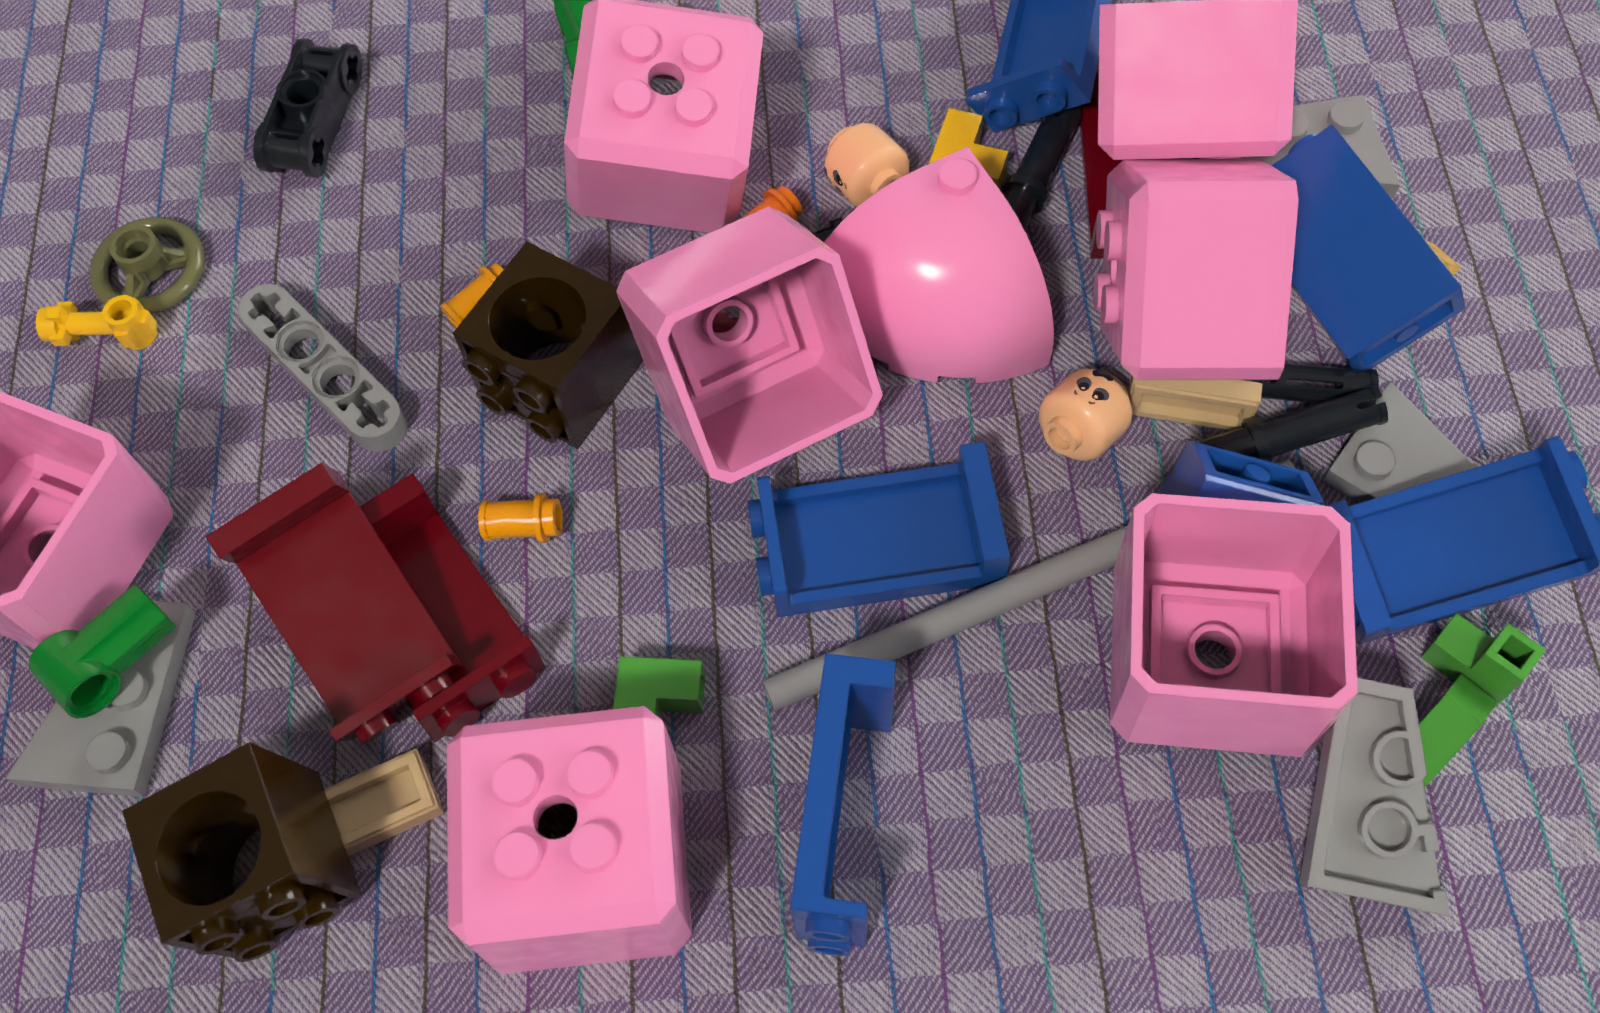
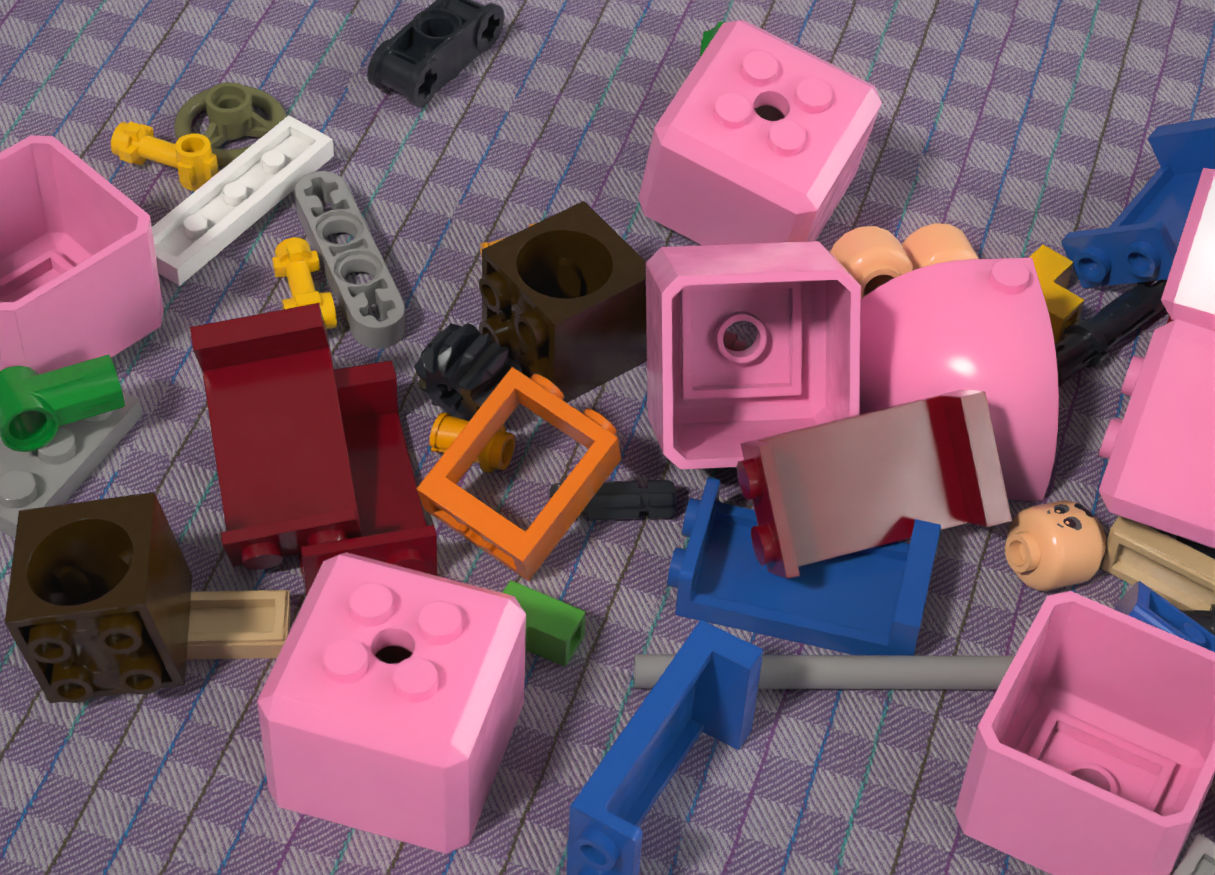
camera: 15 degrees right, 15 degrees down
(184, 349) = (237, 197): none -> white plate
(307, 441) = (296, 262): none -> yellow bar
(491, 457) = (462, 369): none -> black gear
(578, 466) = (486, 528): none -> orange window
(674, 526) = (626, 500): none -> black axle
(814, 195) = (871, 256): none -> light nougat head
(907, 423) = (870, 478): none -> panel

